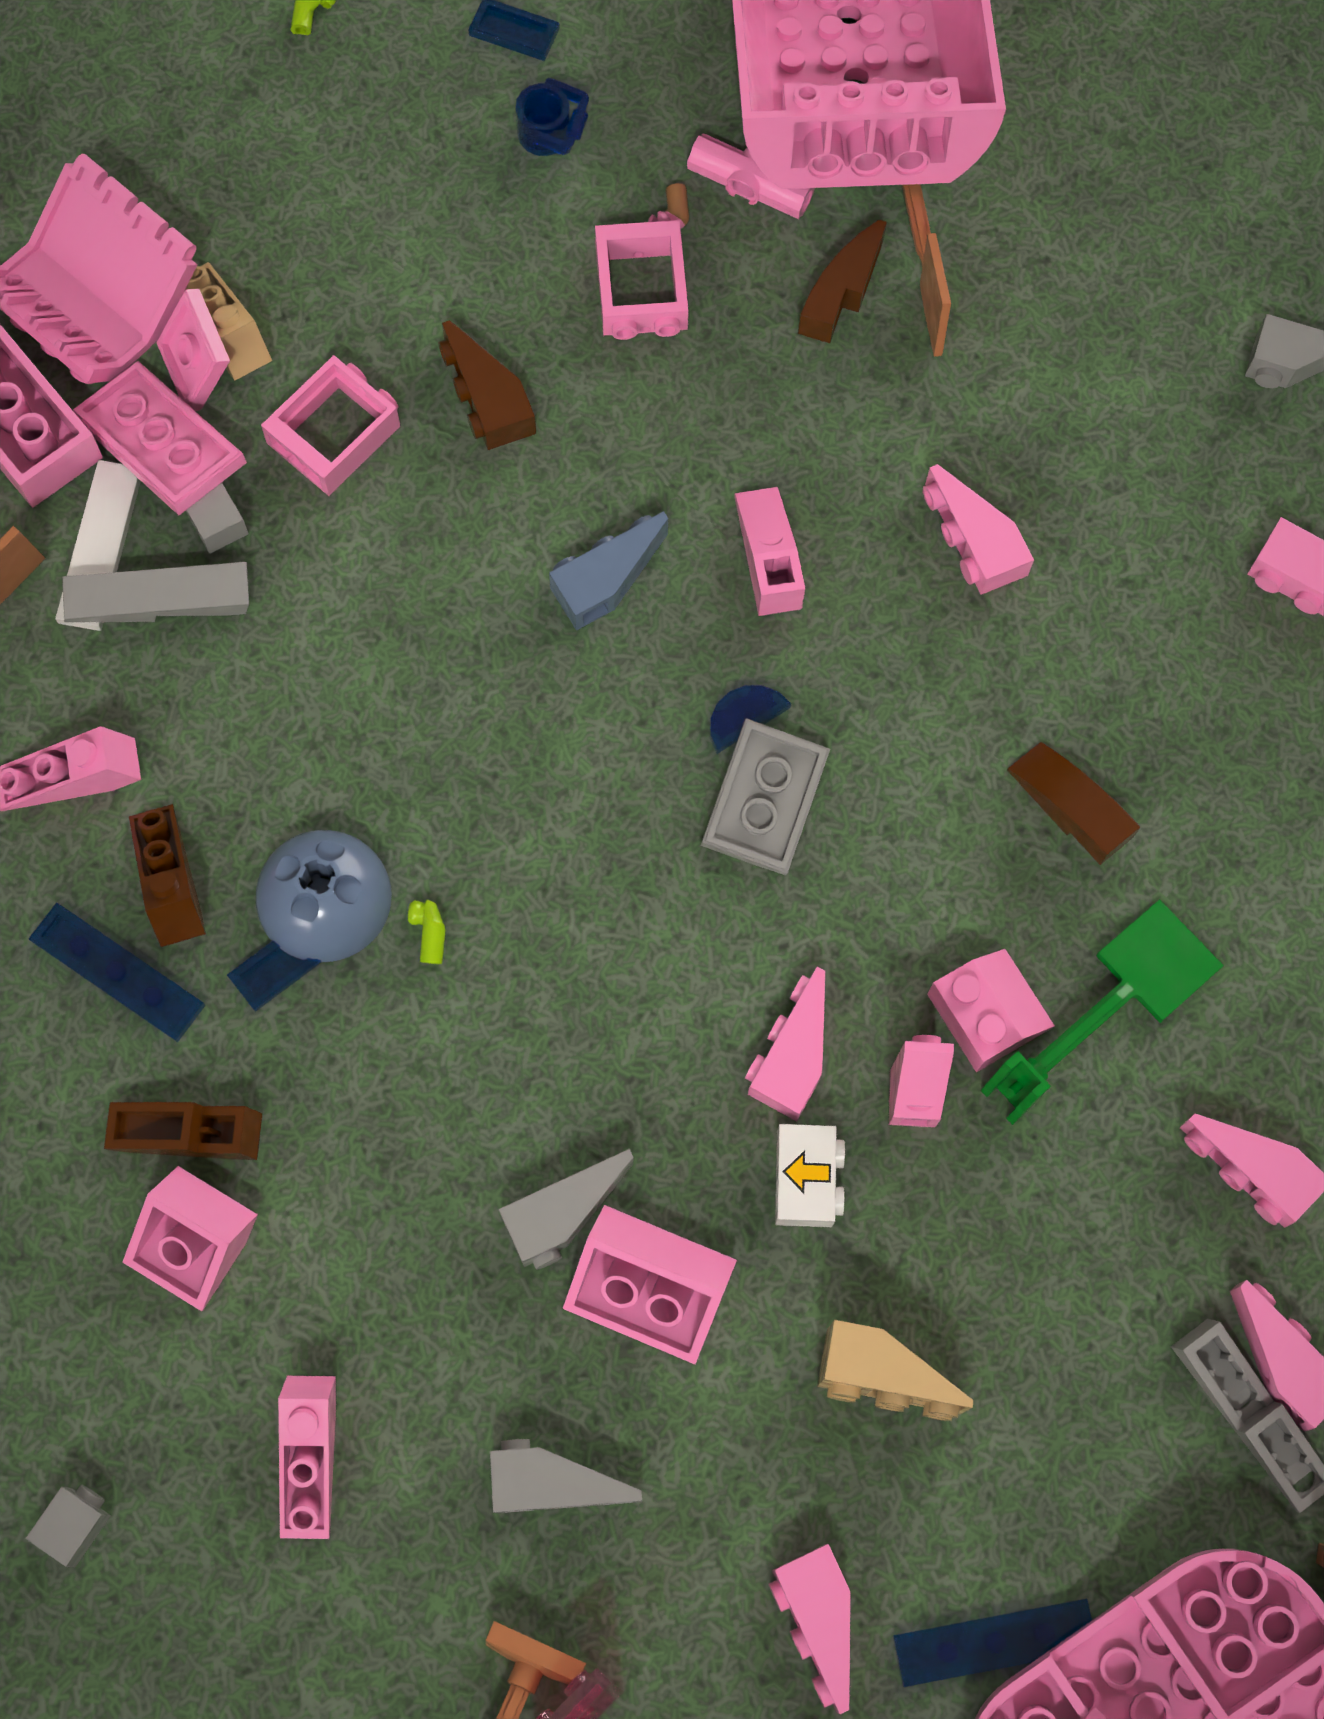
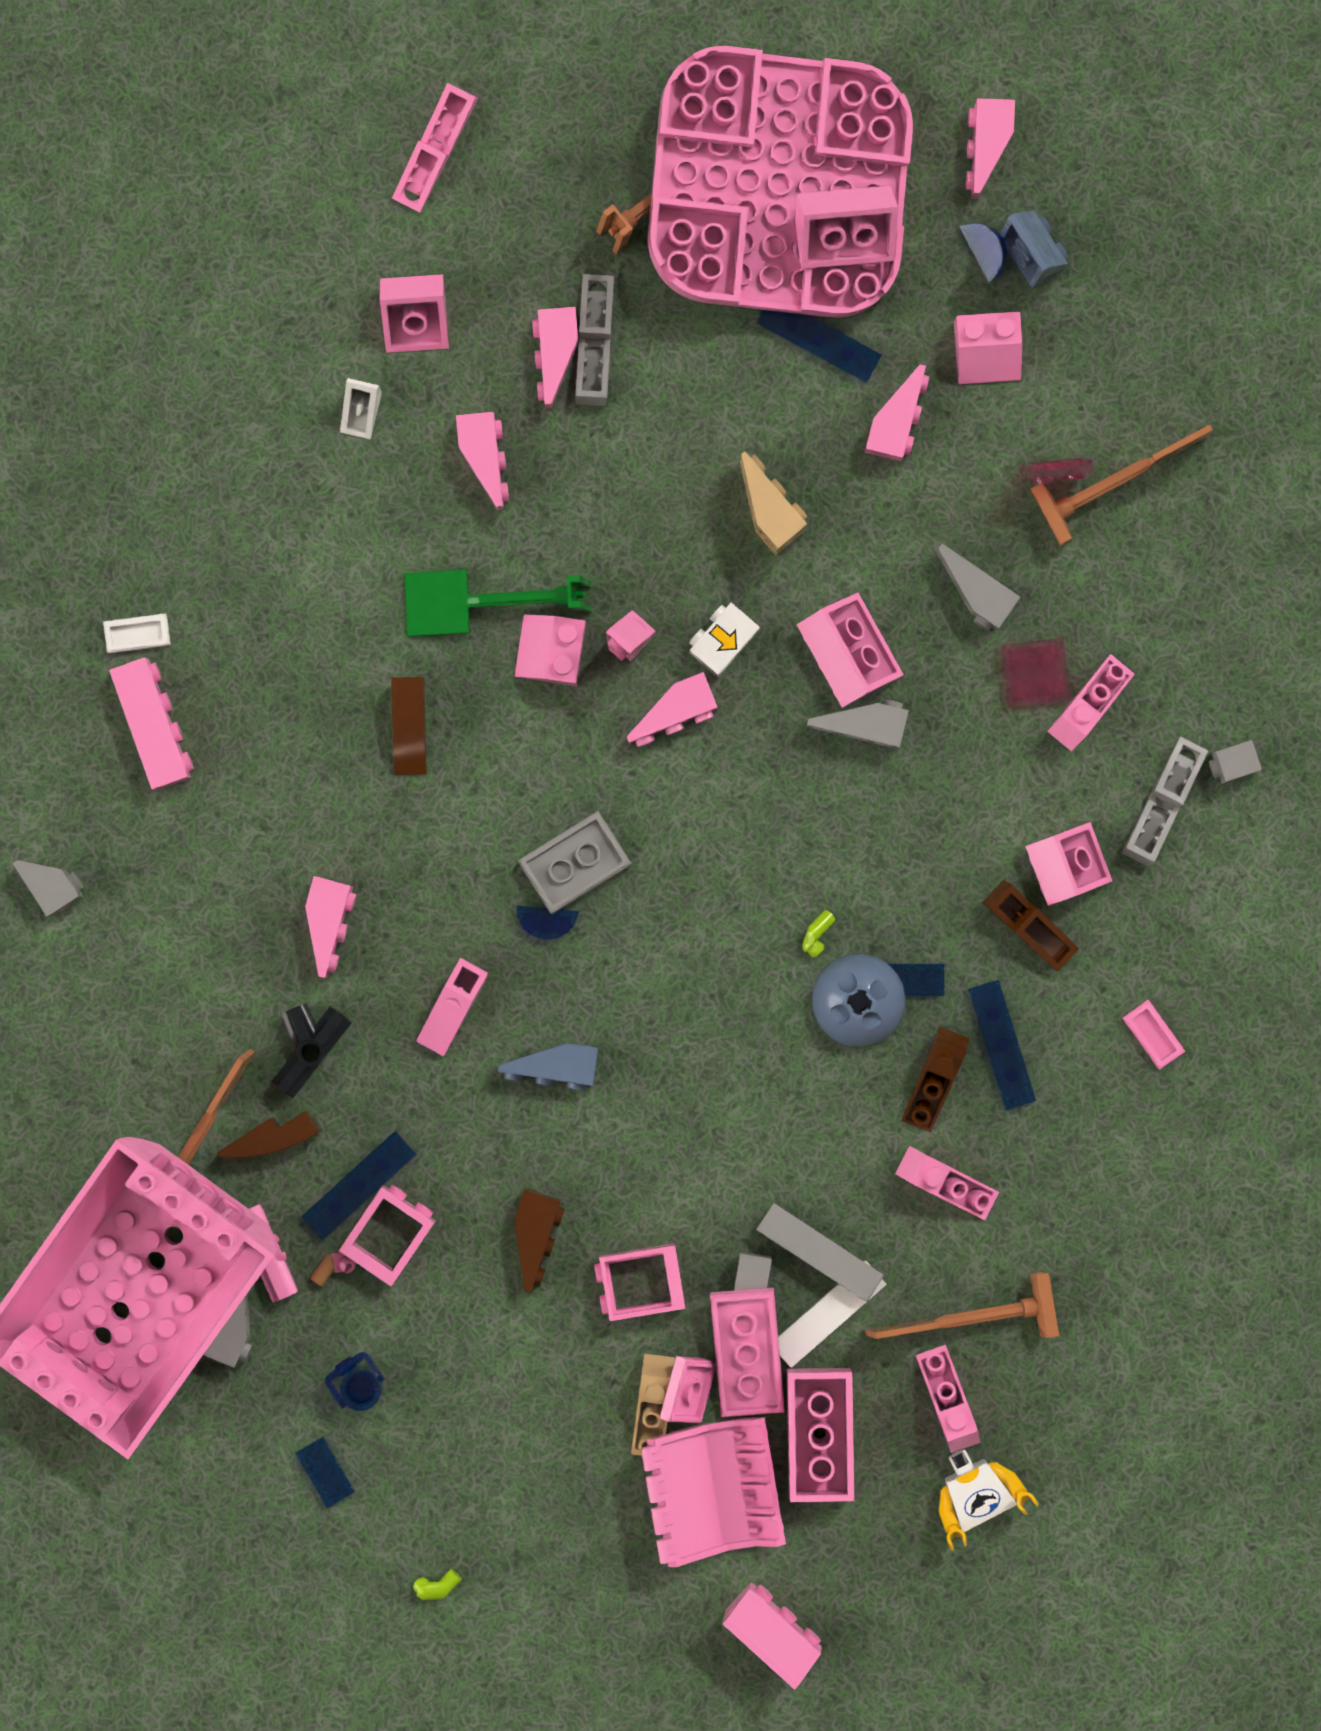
camera: 140 degrees left, 15 degrees up
(125, 1422) = (1169, 795): none -> light grey slope
(404, 1439) = (1035, 672): none -> clear pink plate
(712, 309) = (359, 1185): none -> clear blue tile
(715, 74) = (231, 1342): none -> light grey slope
(898, 408) = (302, 1032): none -> black piece

